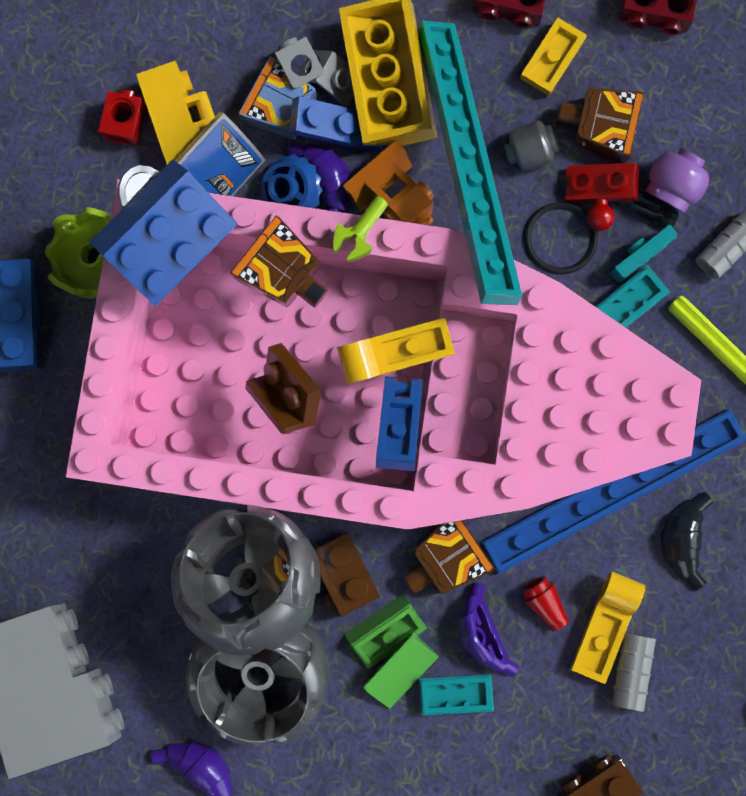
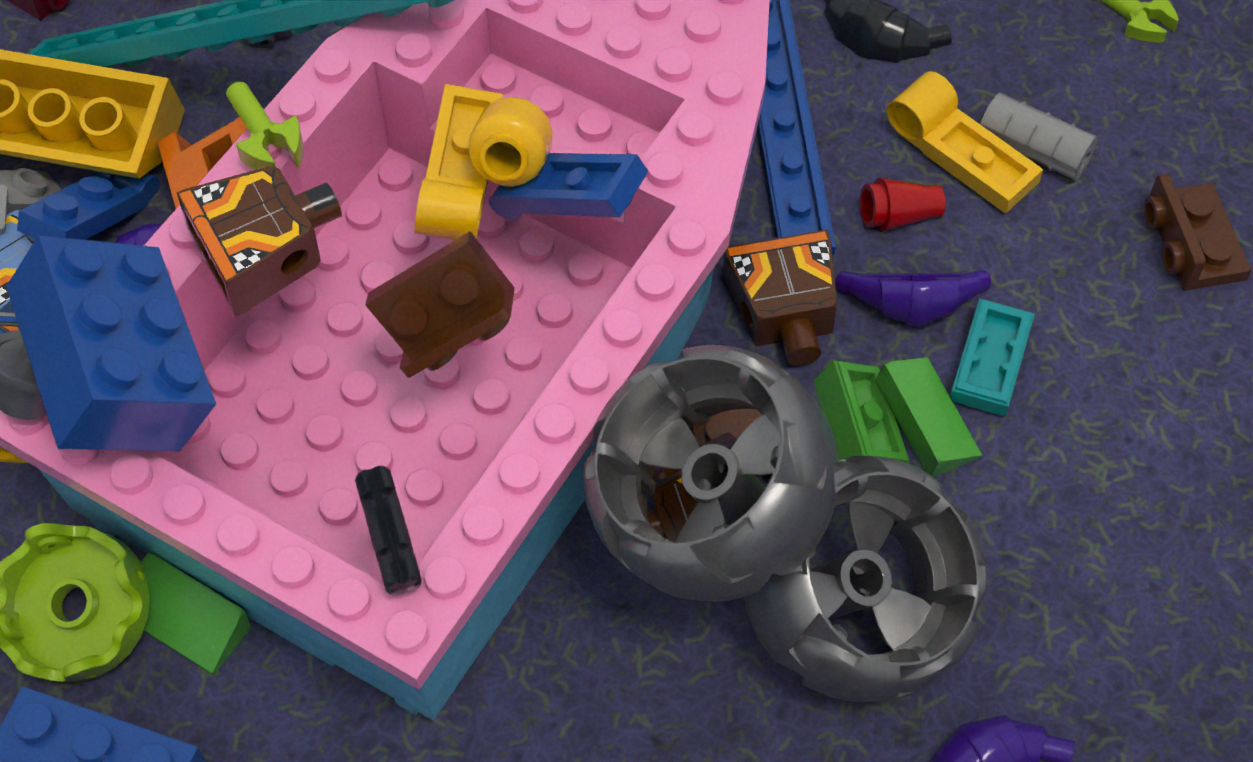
camera: 70 degrees left, 25 degrees down
(132, 427) = (388, 530): none -> black axle
(411, 378) = (510, 141): none -> yellow head

